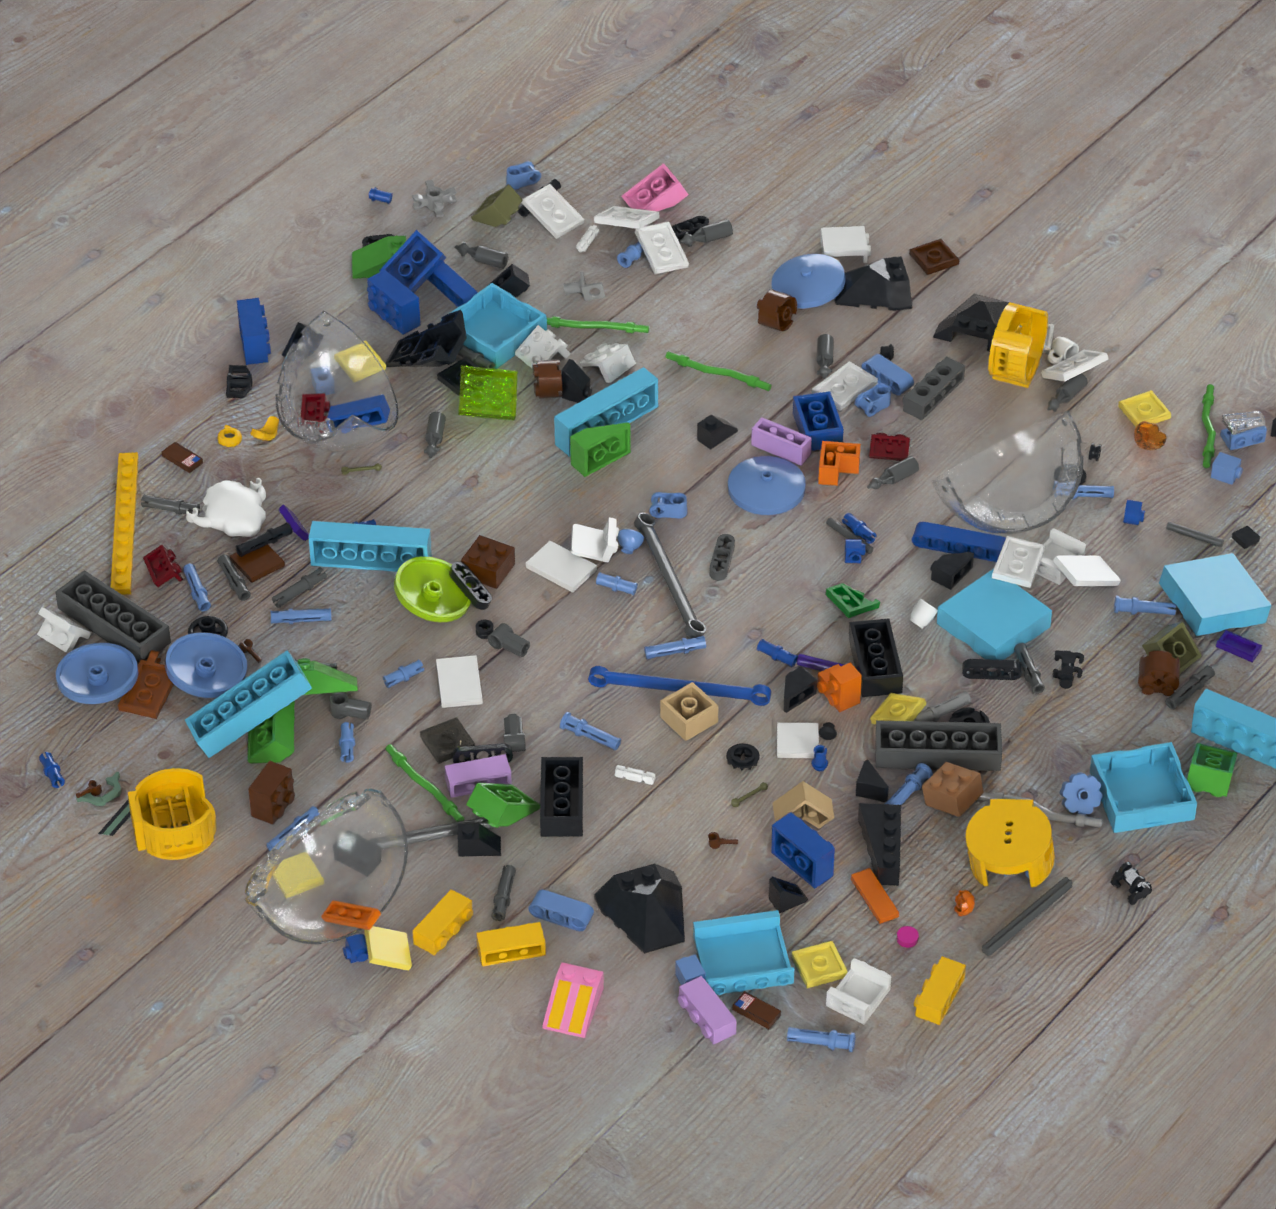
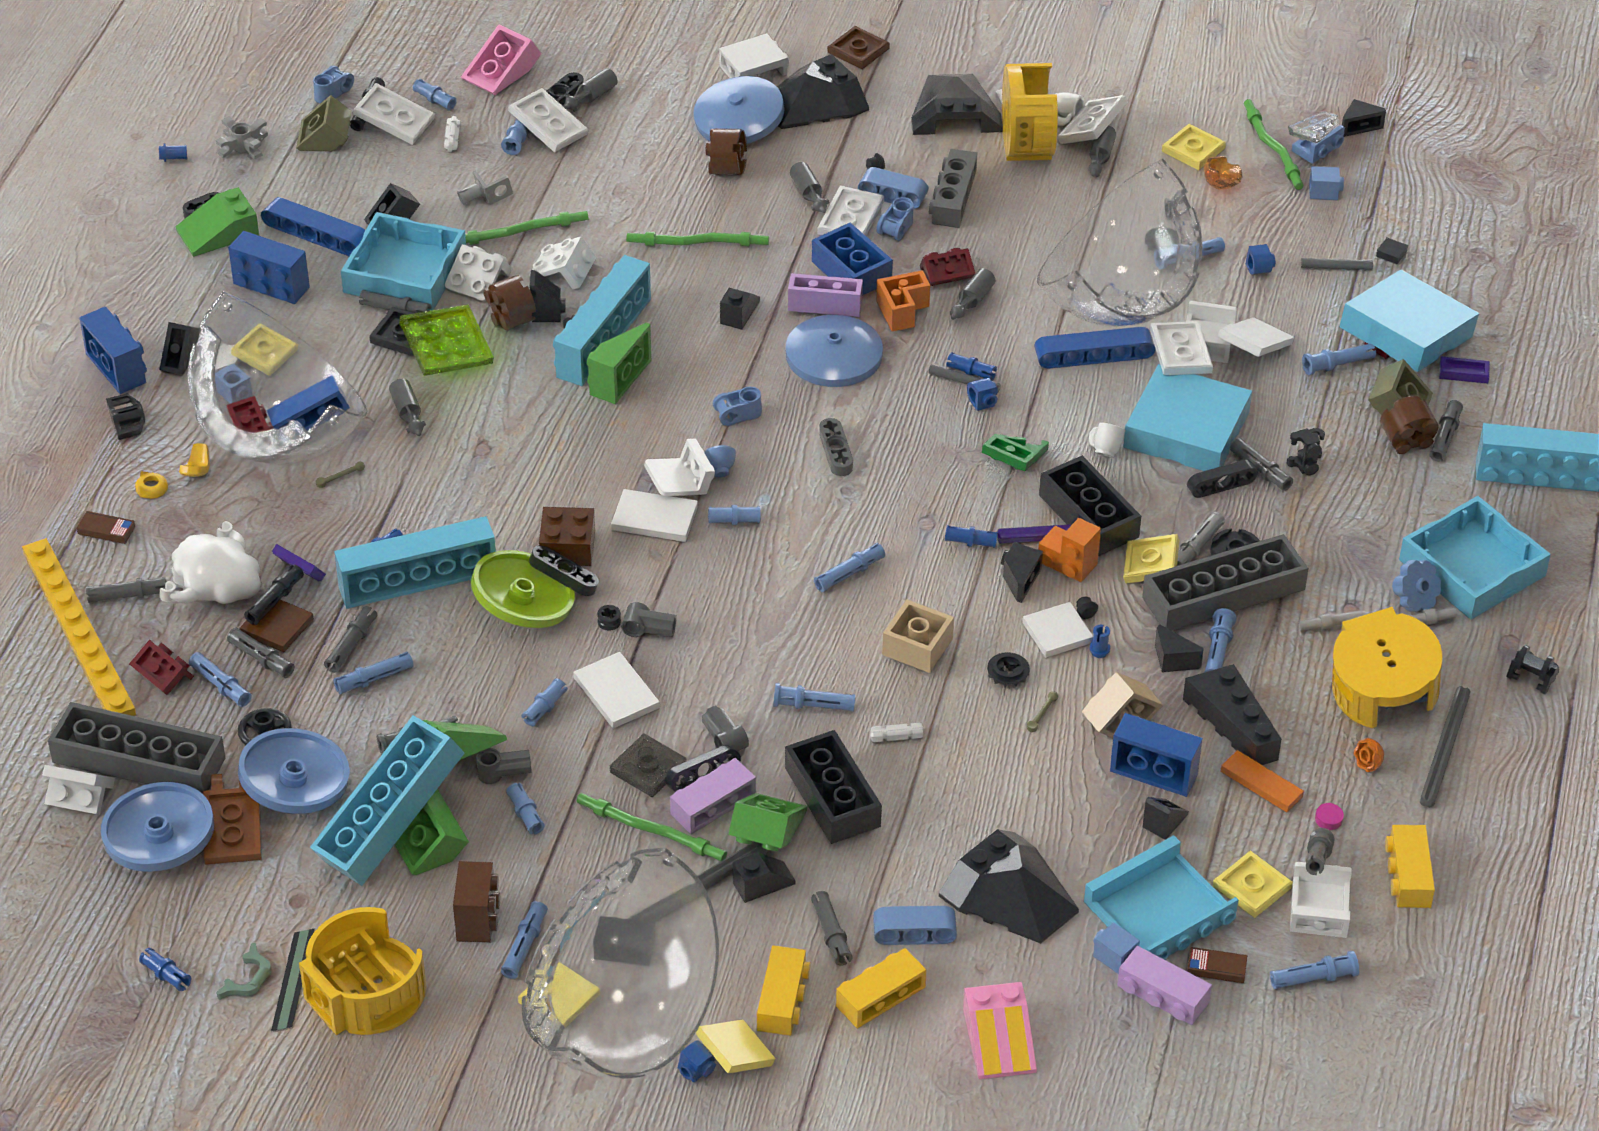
camera: 25 degrees left, 0 degrees up
(93, 789) = (231, 977): reddish brown hand -> none
(249, 649) = (327, 730): reddish brown hand -> none
(351, 915) = (670, 1021): orange tile -> none
(414, 261) = (273, 209): blue brick -> none
(432, 346) = (347, 305): black wedge -> none
(484, 255) = (340, 185): dark grey wheel -> none
(592, 203) = (434, 94): none -> medium blue pin
(626, 217) = (487, 96): white tile -> none
(669, 684) = (881, 610): blue piece -> none
(694, 627) = (856, 537): dark grey piece -> none
(715, 841) = (1041, 778): reddish brown hand -> none
(877, 955) = (1319, 848): none -> dark grey pin
(951, 568) = (1103, 380): black slope -> none
(952, 789) = (1274, 627): medium nougat brick -> none
(1211, 770) = (1534, 512): bright green slope -> none

